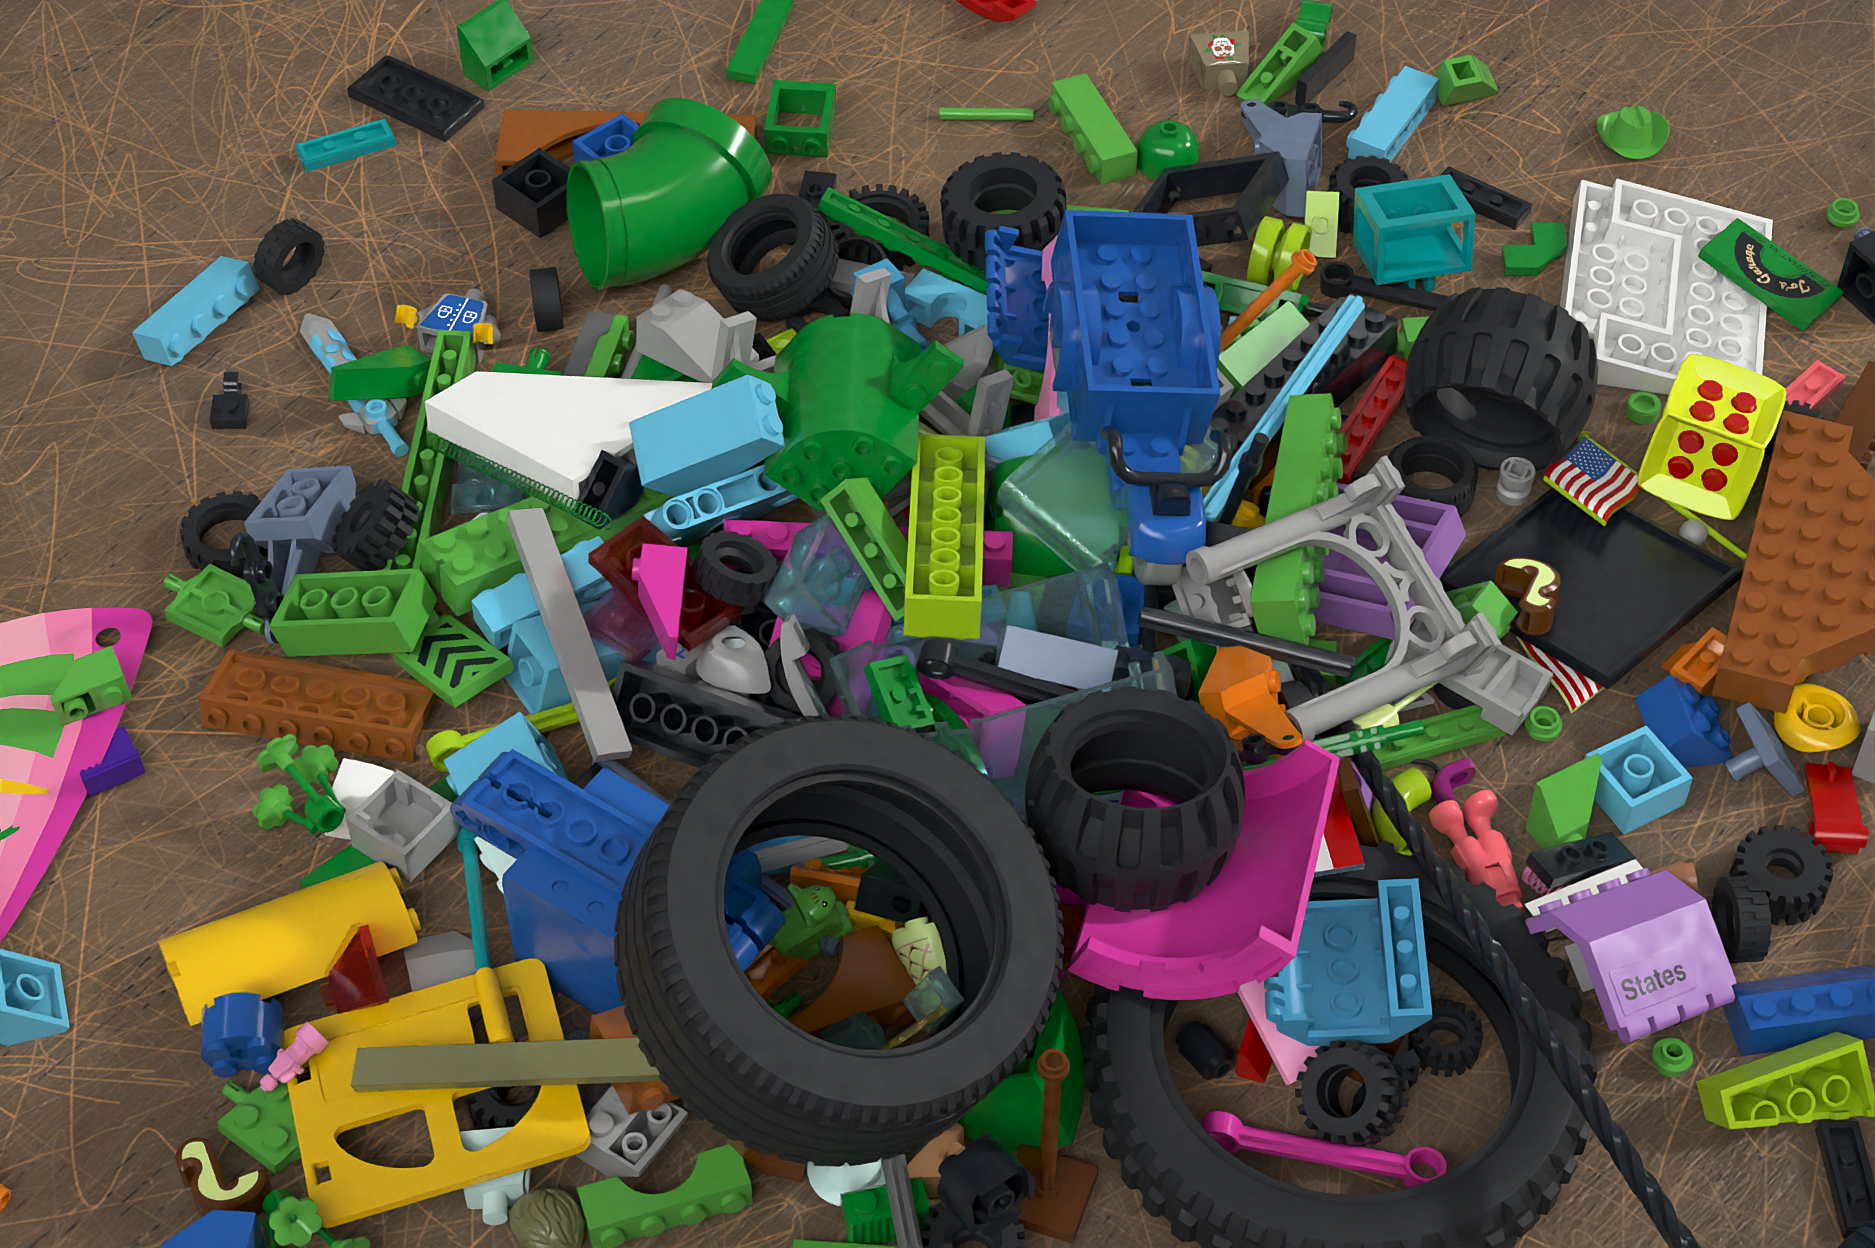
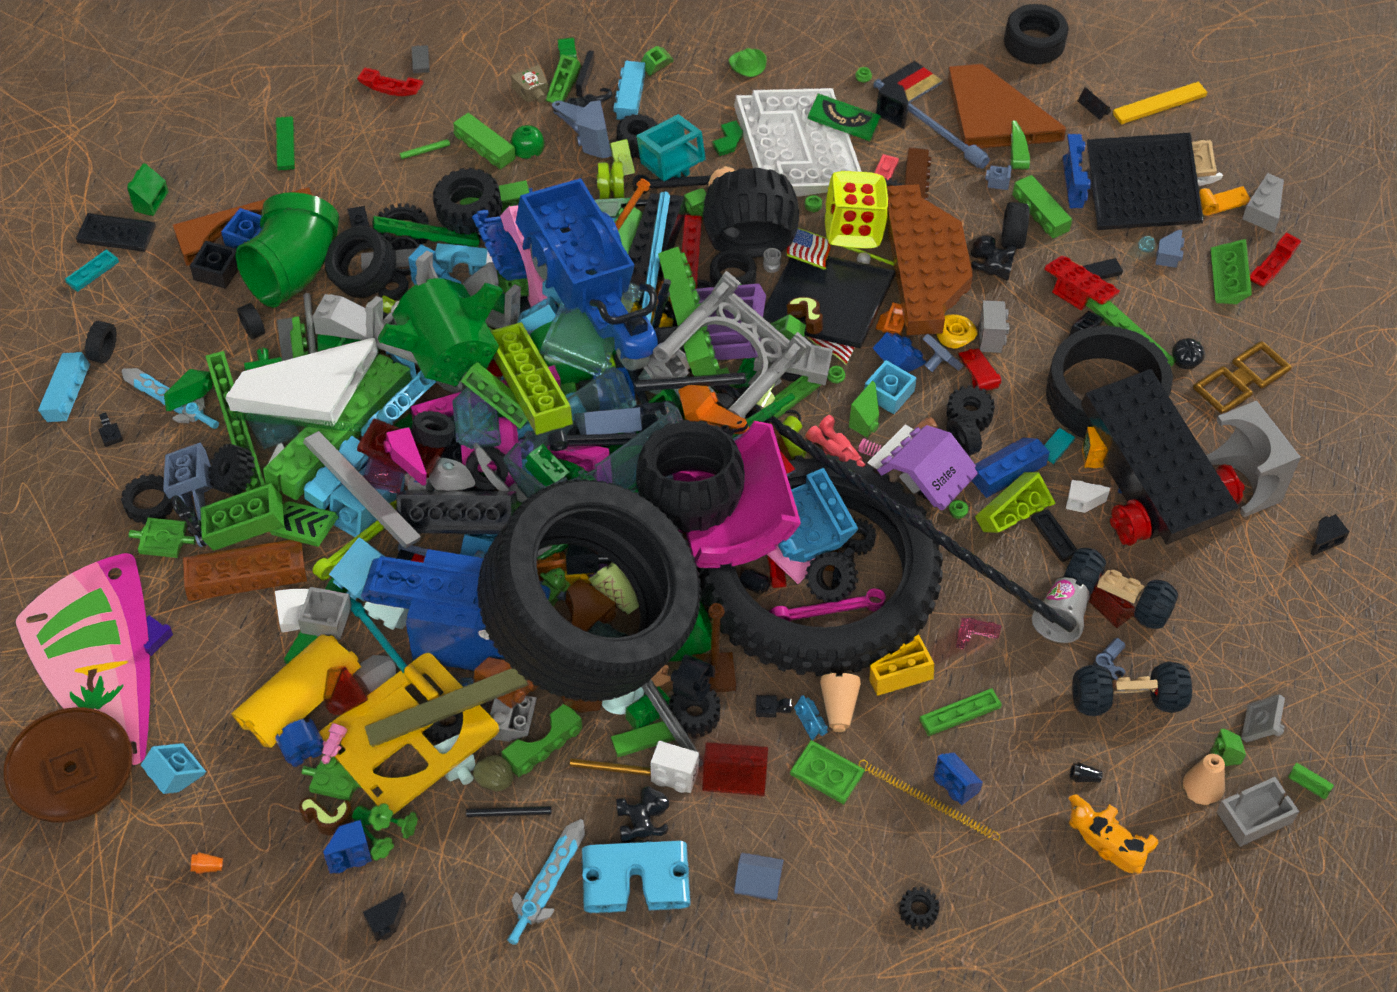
camera: 25 degrees left, 5 degrees up
(90, 687) = (124, 600): bright green slope -> none
(313, 765) = (261, 601): bright green plant -> none
(456, 314) = (205, 345): torso -> none
(611, 487) = (348, 409): black slope -> none
(707, 436) = (388, 367): medium azure slope -> none
(801, 99) = (330, 169): green window -> none
(915, 1029) = (634, 621): clear yellow piece -> none
(932, 993) = (637, 602): clear light blue tile -> none
(1257, 176) = (562, 149): black window -> none
(1450, 777) = (806, 413): magenta hair -> none
(1490, 200) = (699, 120): black tile -> none
(1578, 859) = (881, 433): black plate -> none

